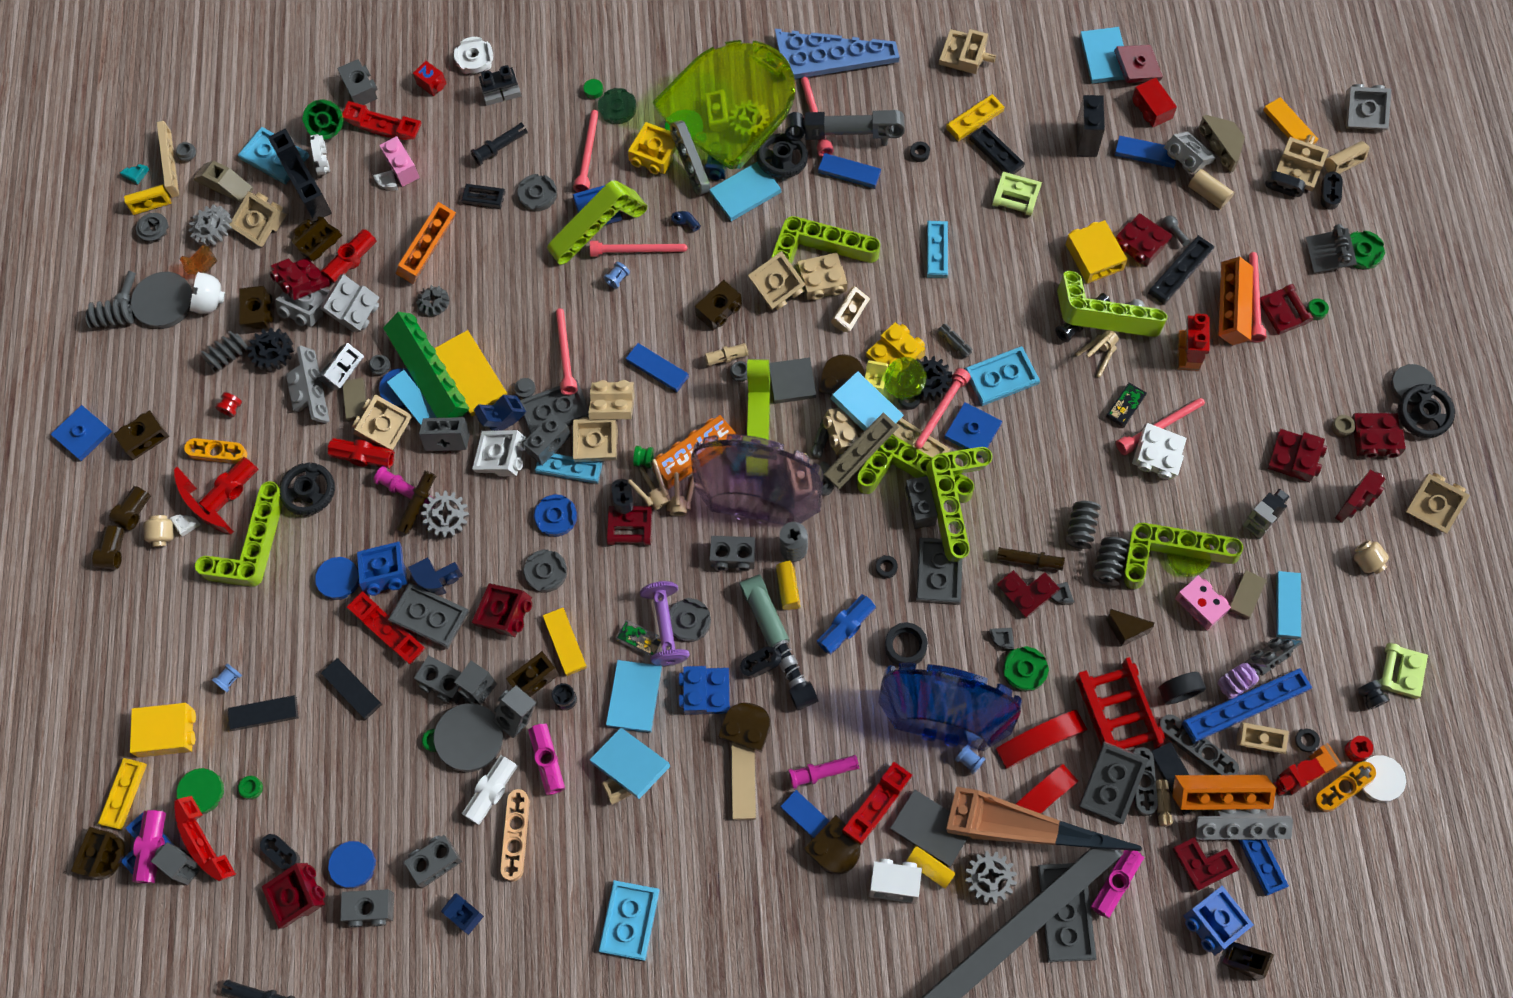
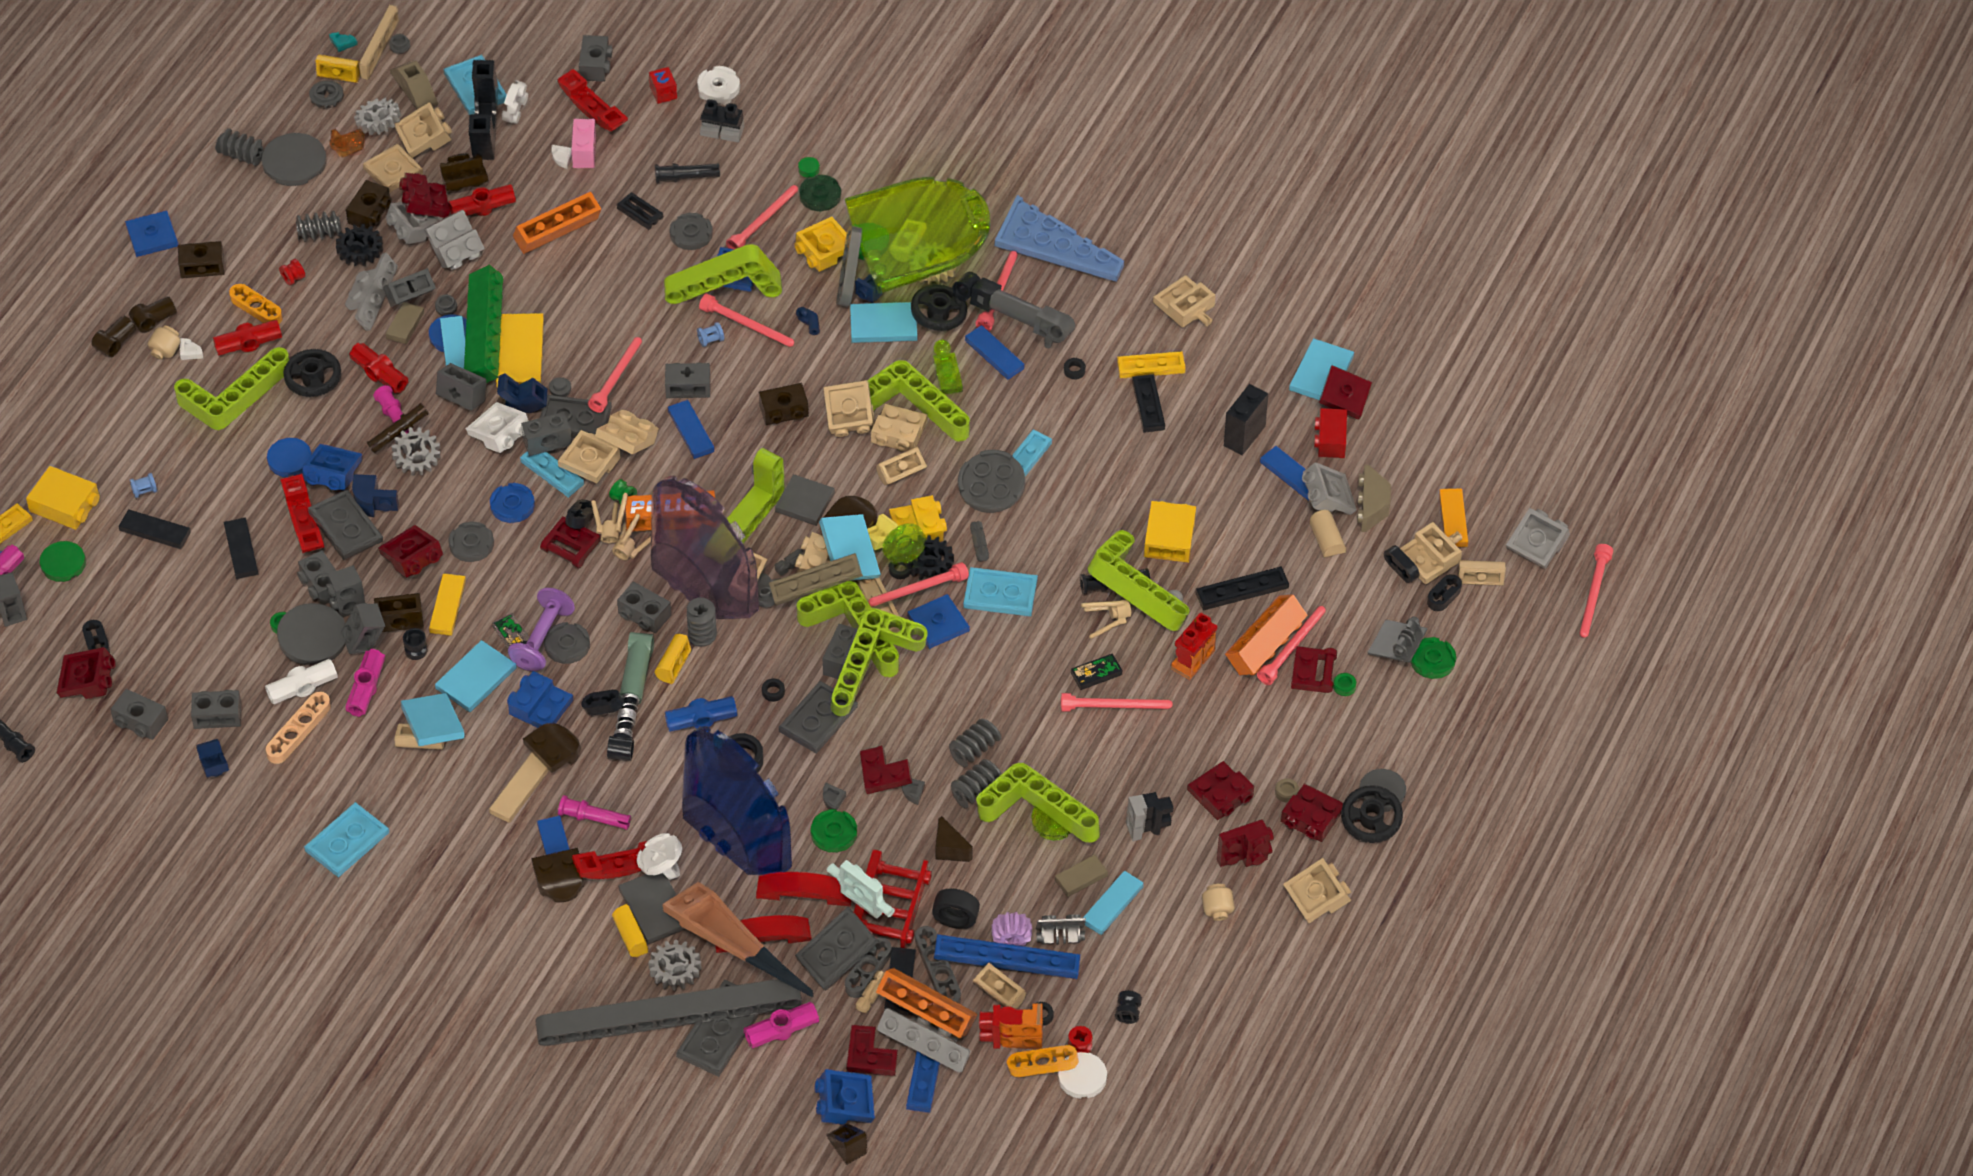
camera: 25 degrees right, 15 degrees down
(126, 288) = (270, 133): dark grey bar -> none
(185, 489) = (209, 322): red slope -> none
(196, 843) = (33, 595): red slope -> none
(206, 294) = (334, 171): white cylinder -> none
(250, 787) = (105, 580): green tile -> none
(252, 264) = (390, 166): none -> tan tile
(323, 118) = (539, 73): green cylinder -> none
(352, 864) = (148, 678): blue tile -> none
(381, 422) = (413, 351): tan plate -> none
(440, 303) = (534, 281): dark grey gear -> none
(626, 325) = (687, 380): none -> dark grey brick
(726, 354) = (753, 446): tan pin -> none
(824, 204) = (946, 368): none -> clear neon green plate
(895, 881) = (588, 919): white brick -> none
(913, 784) = (661, 856): none -> white tile
(928, 283) = (991, 481): none -> dark grey tile
(970, 759) = (727, 869): medium blue bush -> none
(1019, 188) = (1141, 443): yellowish green plate -> none
(1029, 558) = (913, 752): dark brown pin -> none
(1108, 722) = (861, 889): none -> light aqua plate
(1143, 239) = (1224, 544): dark red plate -> none
(1159, 451) = (1092, 721): white plate -> none
(1170, 223) = (1264, 546): dark grey bar -> none
(1203, 602) = (1033, 858): bright pink brick -> none
(1410, 671) = (1179, 1011): yellowish green plate -> none
(1420, 96) = (1602, 554): none -> coral piece

